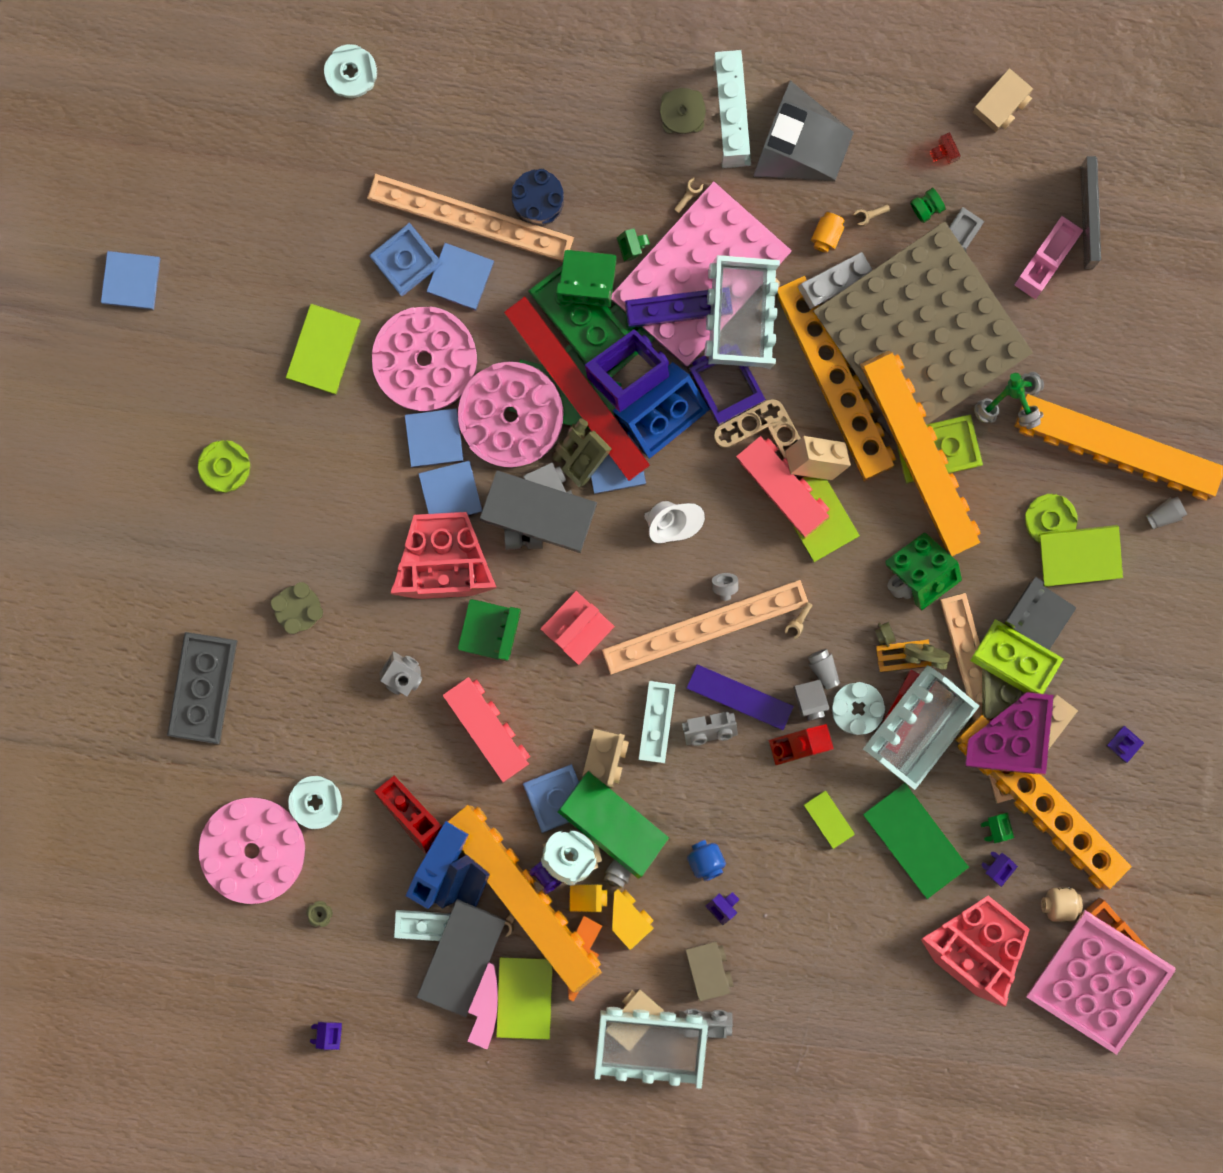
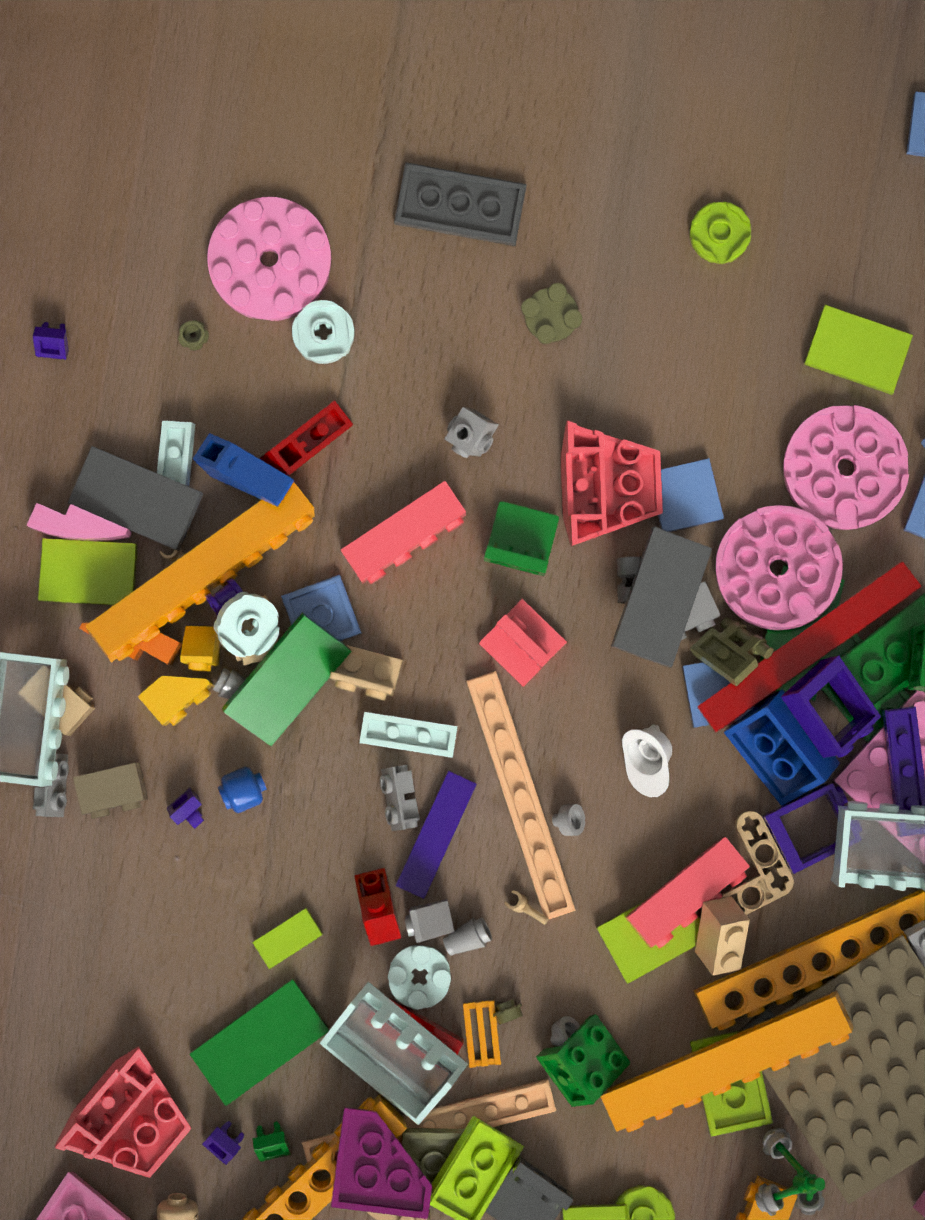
camera: 90 degrees right, 0 degrees up
(434, 438) = (751, 477): medium blue tile -> none
(462, 882) = (223, 500): dark blue panel -> none
(927, 652) = (484, 1059): olive piece -> none

